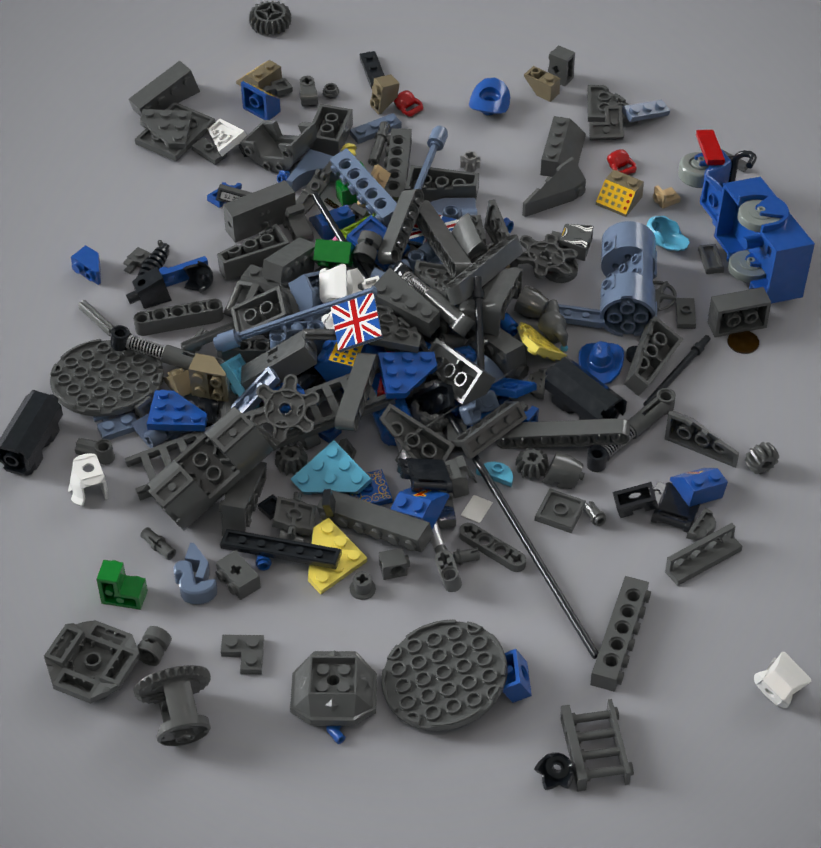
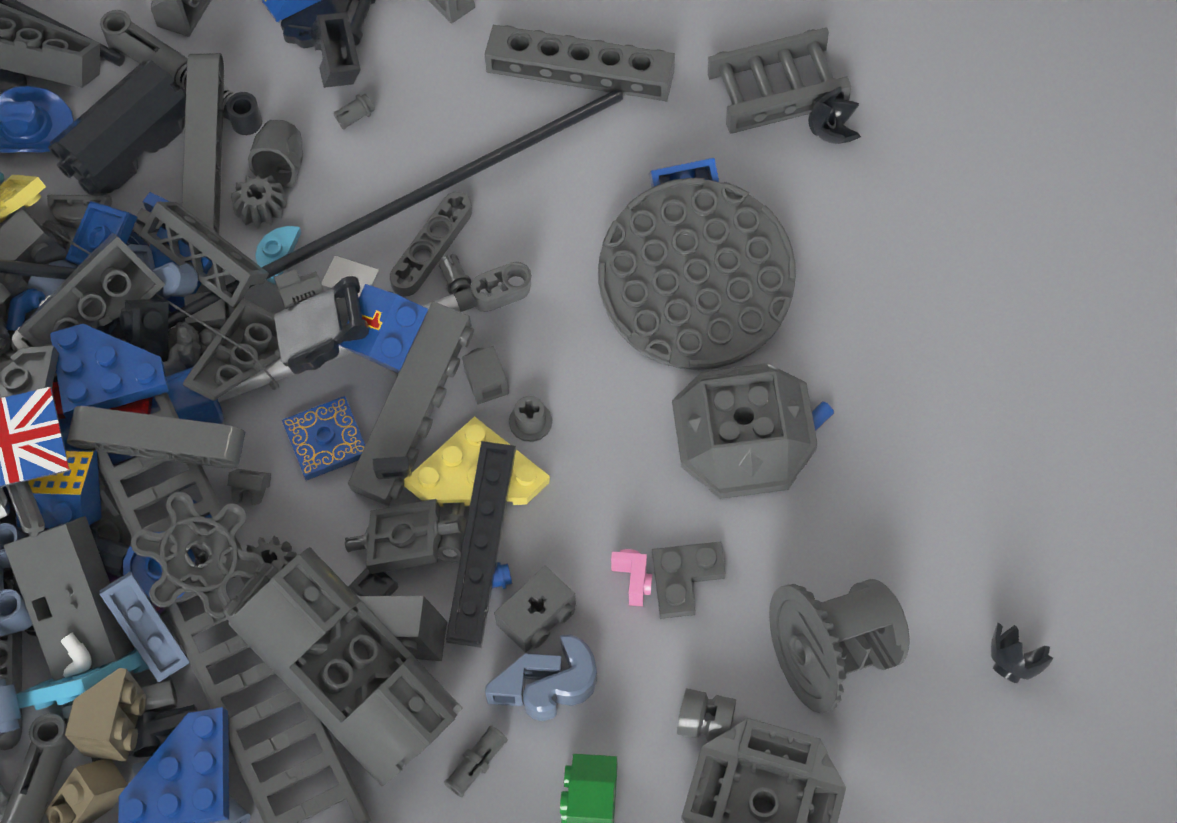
camera: 95 degrees left, 15 degrees up
(156, 808) = (1009, 656): none -> black piece
(246, 367) = (79, 655): none -> white animal
(247, 624) = (636, 564): none -> bright pink bracket
(333, 471) = (305, 489): medium azure plate -> none
(560, 510) = (347, 160): dark grey tile -> none

